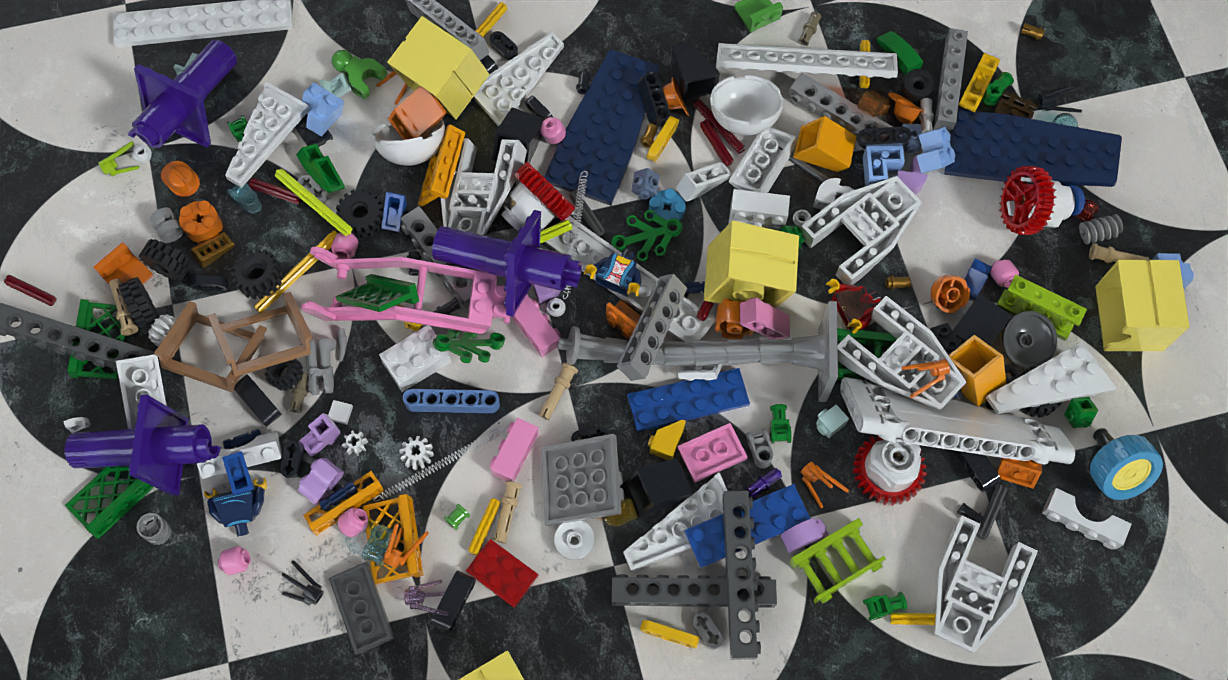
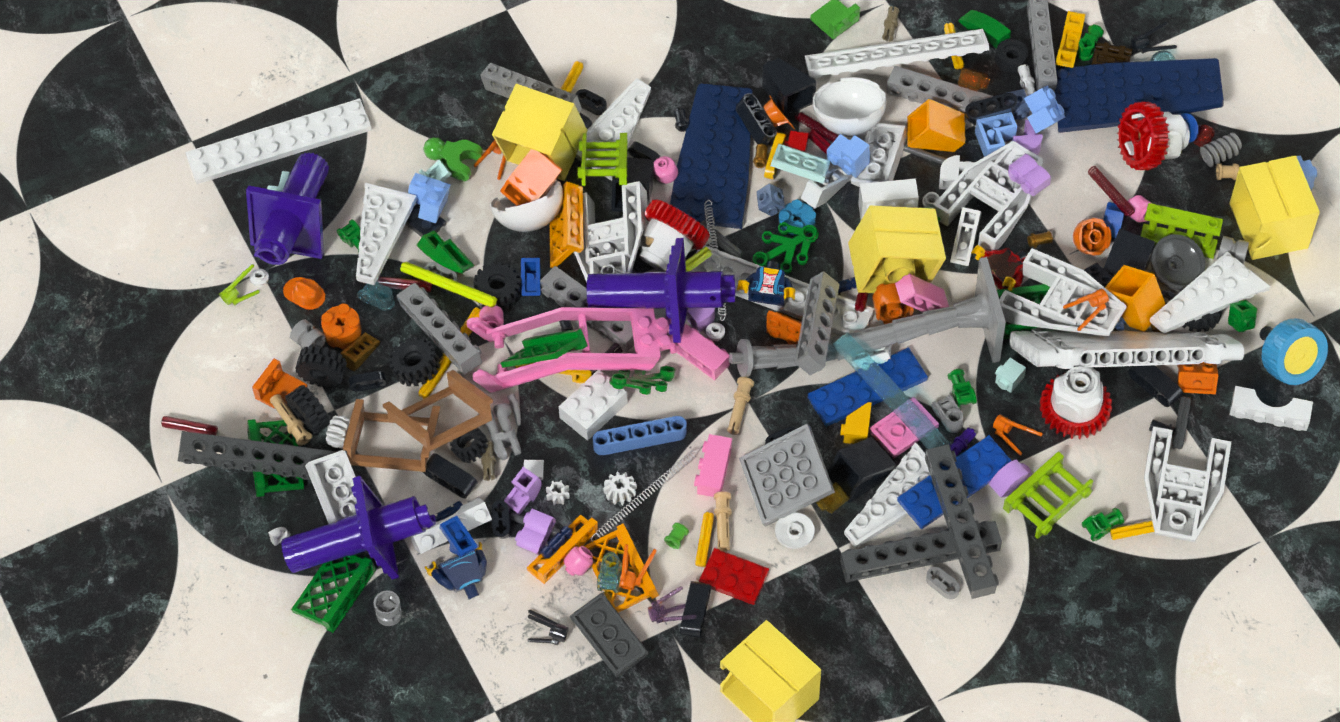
camera: 10 degrees left, 10 degrees down
(234, 560) = (474, 619): bright pink head -> none
(273, 209) = (439, 328): none -> light grey brick
(507, 117) = (619, 163): none -> lime fence
(669, 634) = (908, 592): yellow beam -> none
(683, 153) = (800, 163): none -> light aqua tile
(686, 133) = (797, 140): none -> red brick
(707, 418) = (889, 392): none -> clear light blue tile
(733, 155) = (849, 154): none -> light blue brick
(825, 264) = (965, 236): none -> white slope
(903, 216) = (1029, 175): none -> lavender brick
(904, 109) = (1004, 80): orange piece -> none
(981, 248) = (1111, 188): none -> dark red piece
(1092, 339) = (1236, 249): none -> light grey wheel

